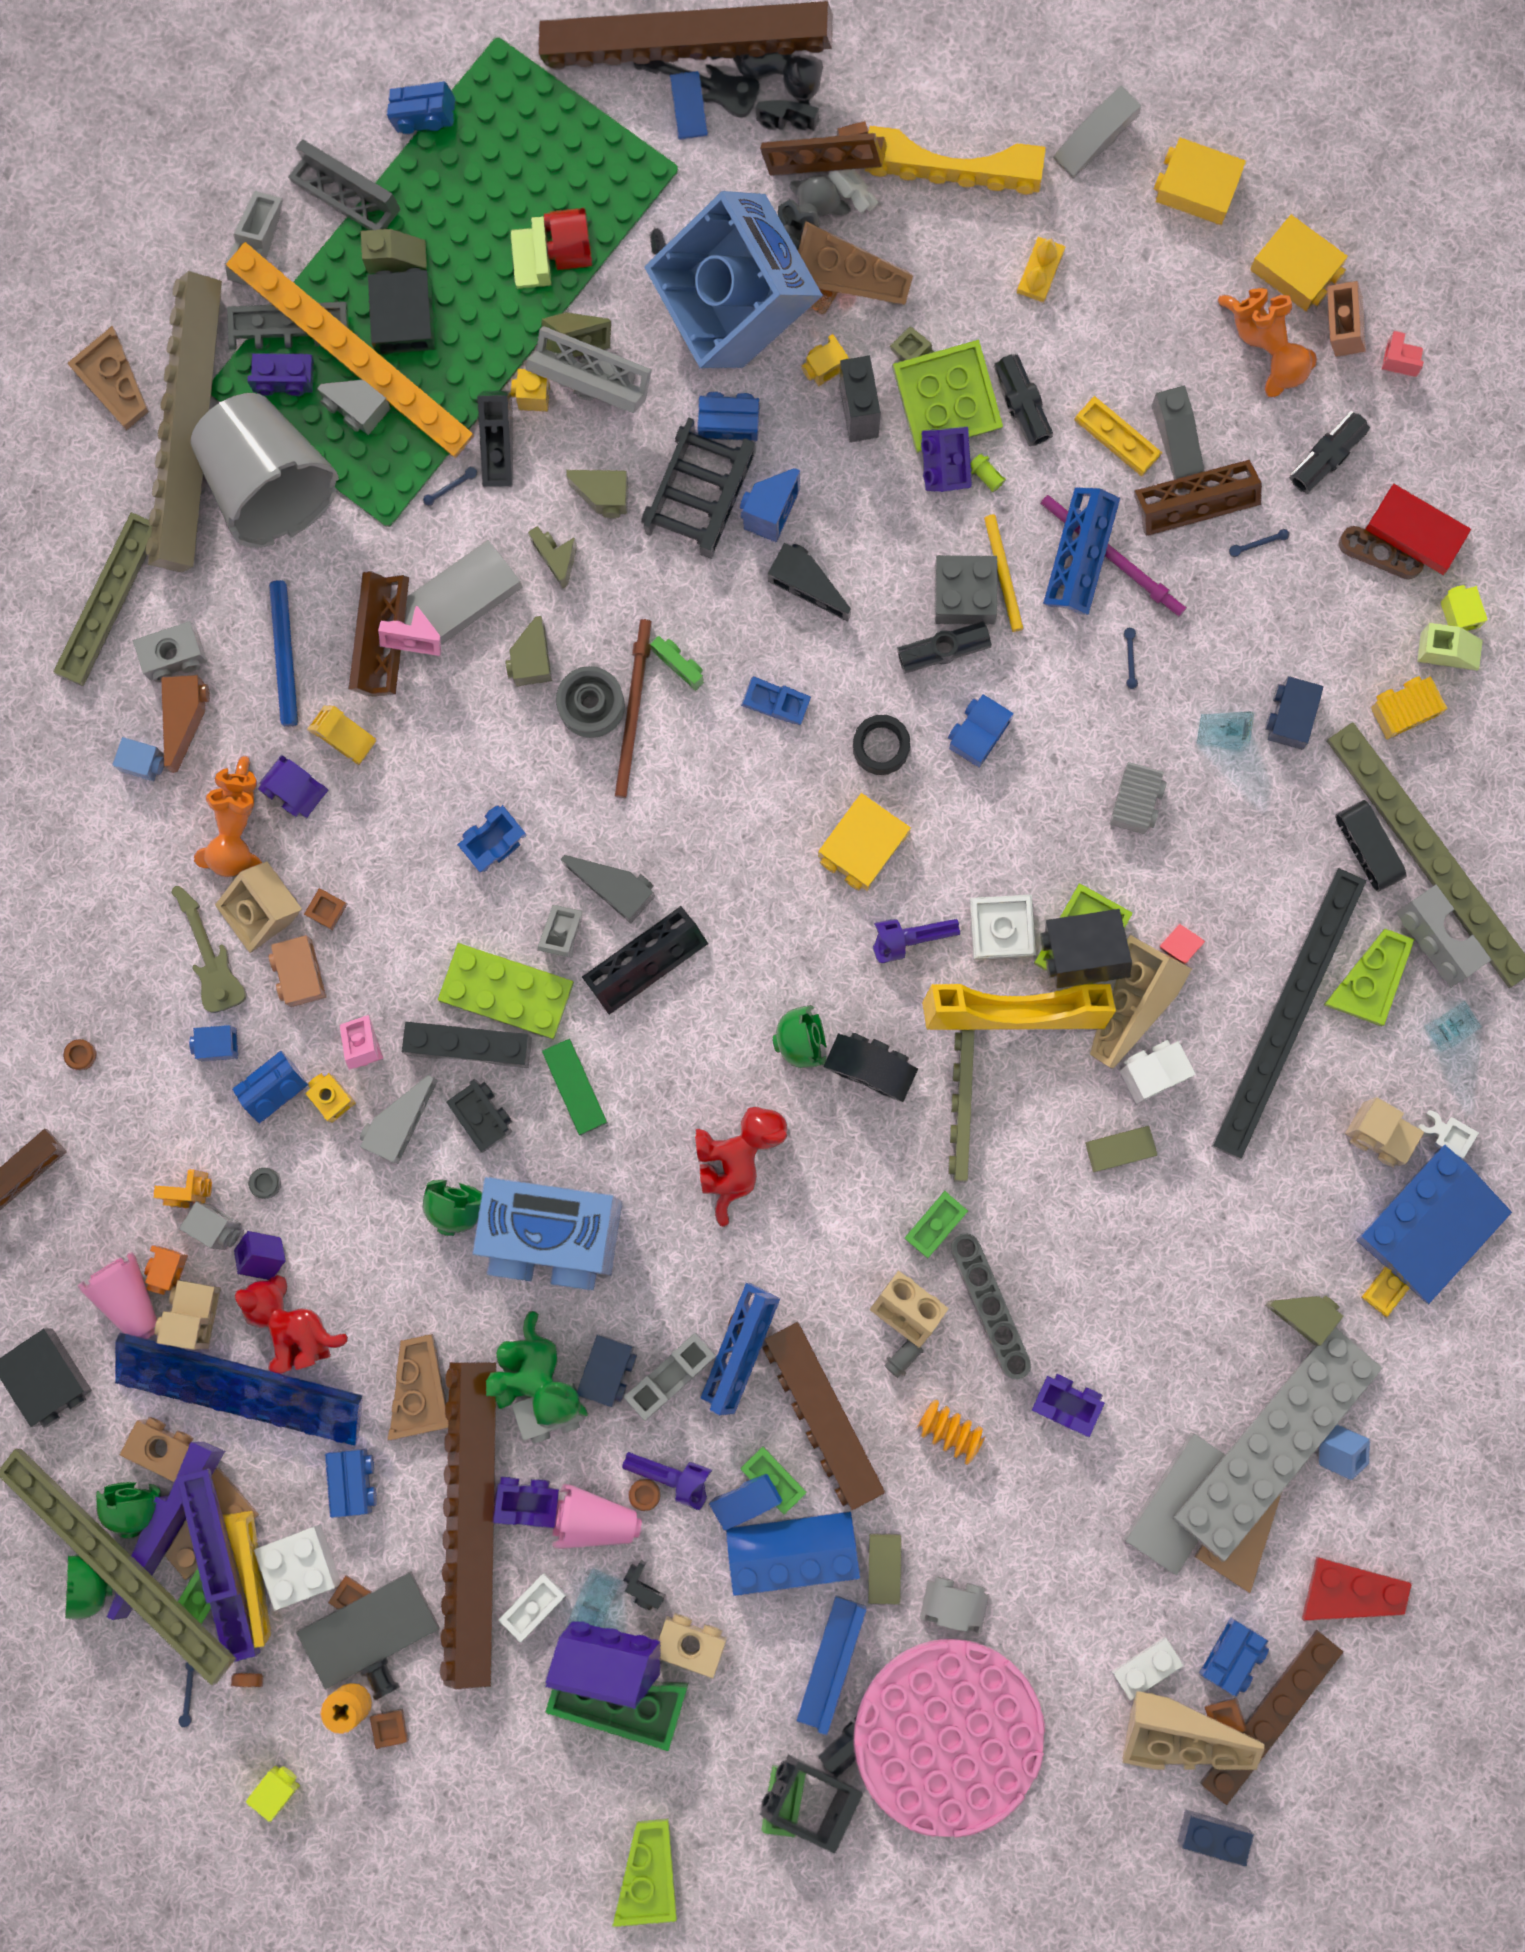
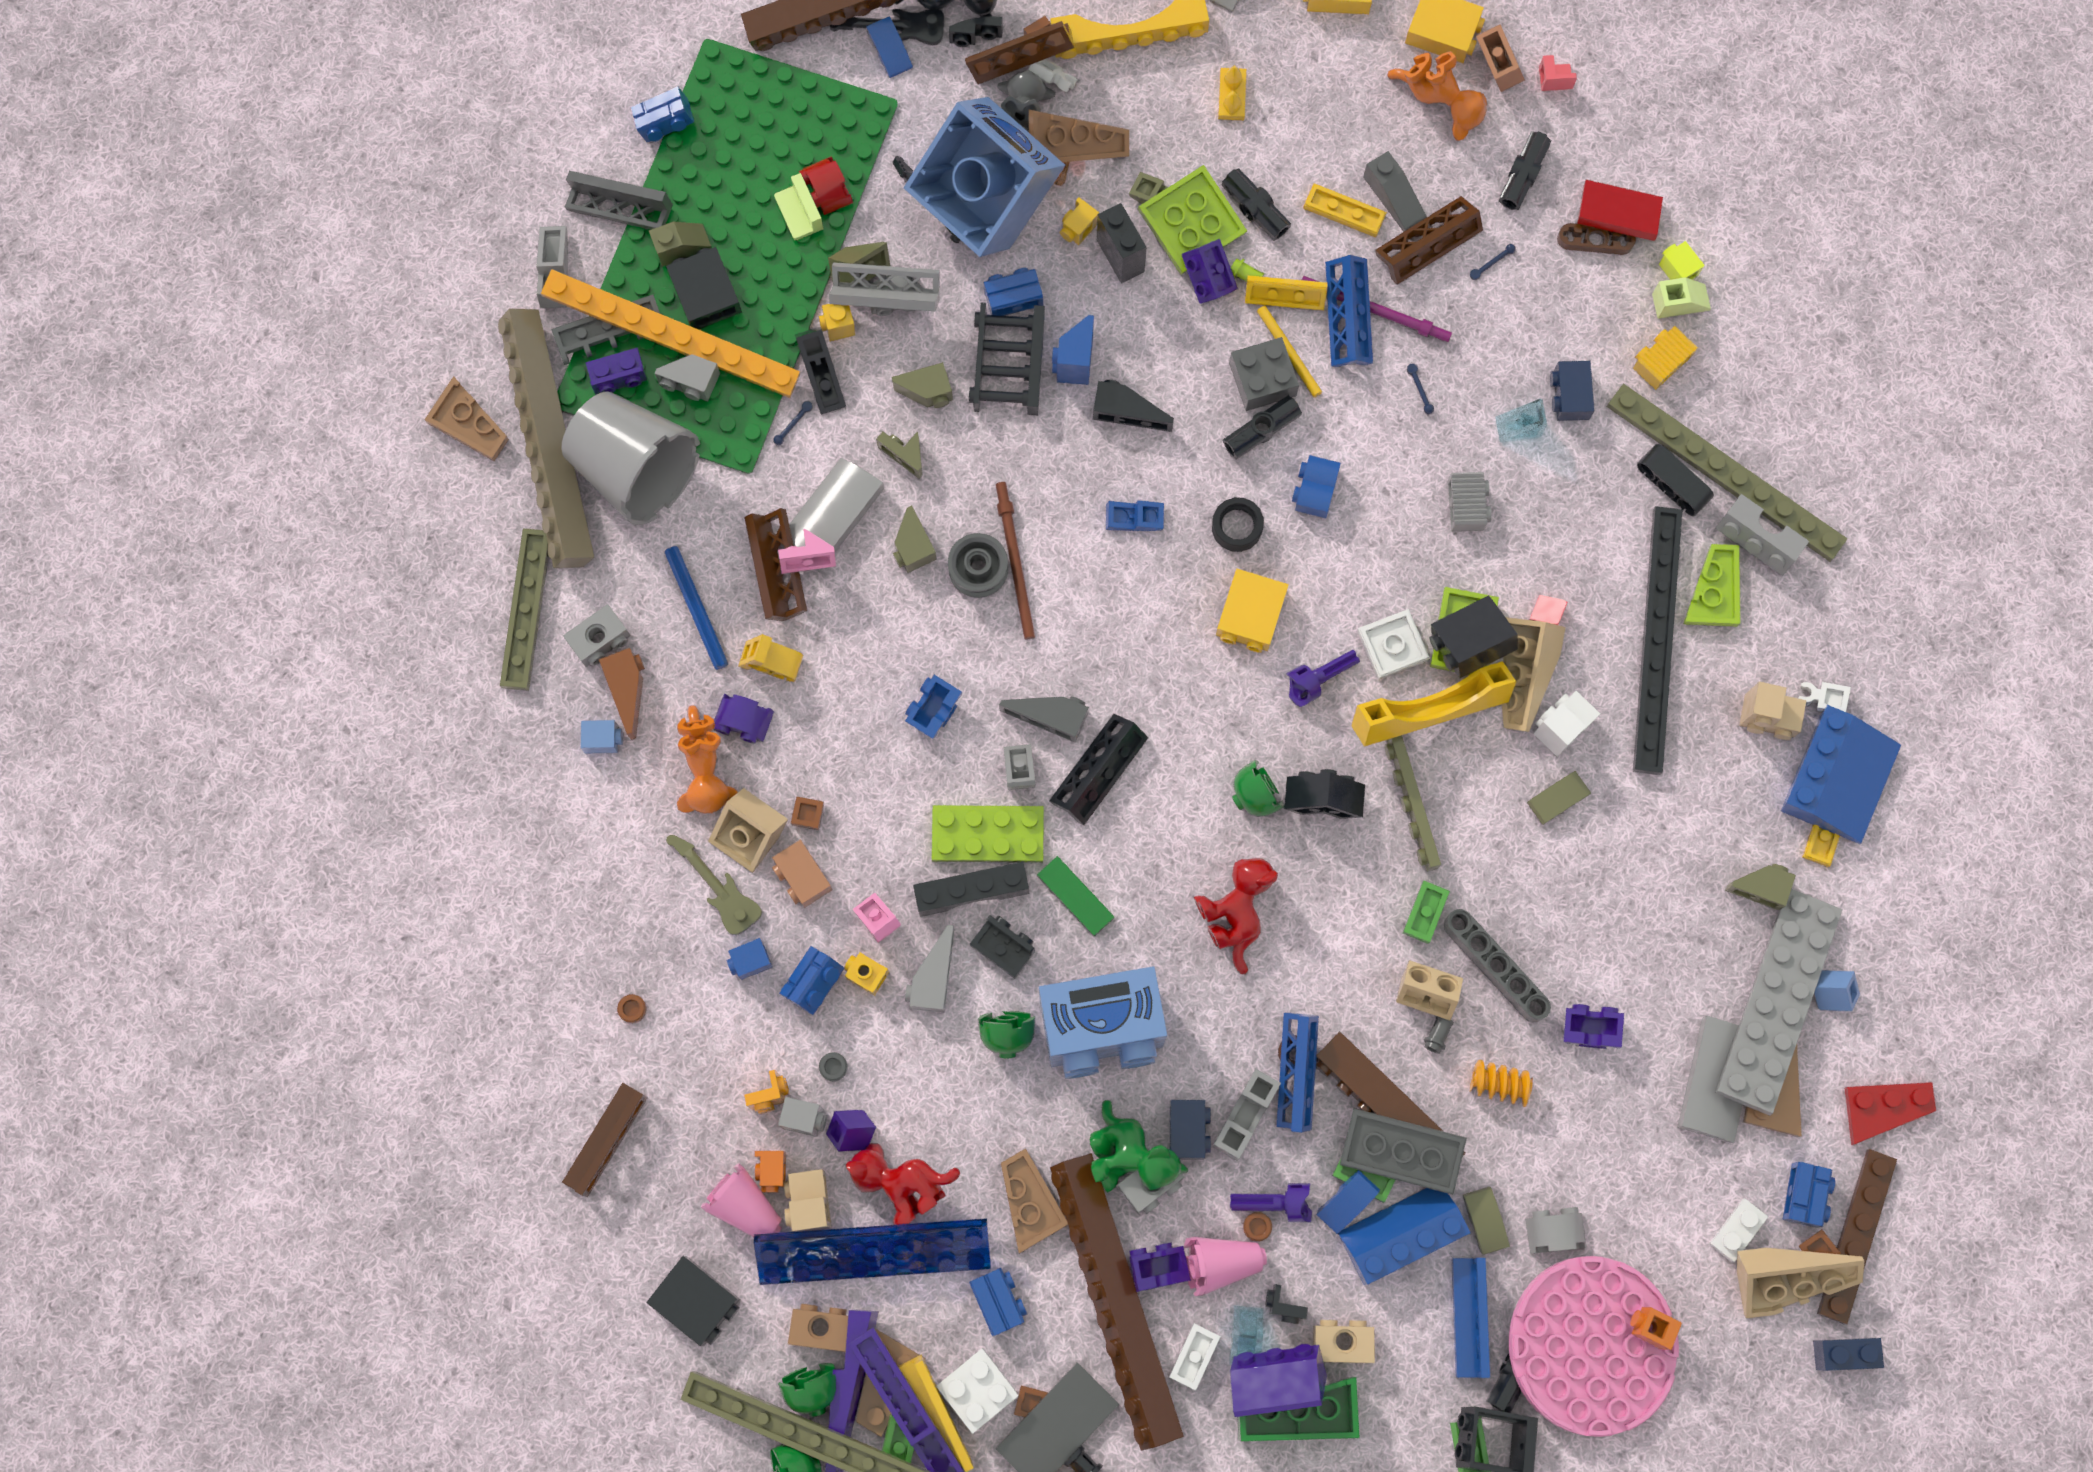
camera: 25 degrees left, 5 degrees down
(669, 654) = (1031, 504): bright green plate -> none
(819, 1469) = (1403, 1151): none -> dark grey tile
(1021, 508) = (1285, 292): none -> yellow tile
(1025, 1750) = (1664, 1327): none -> orange brick
(1453, 1026) = (1796, 608): clear light blue slope -> none

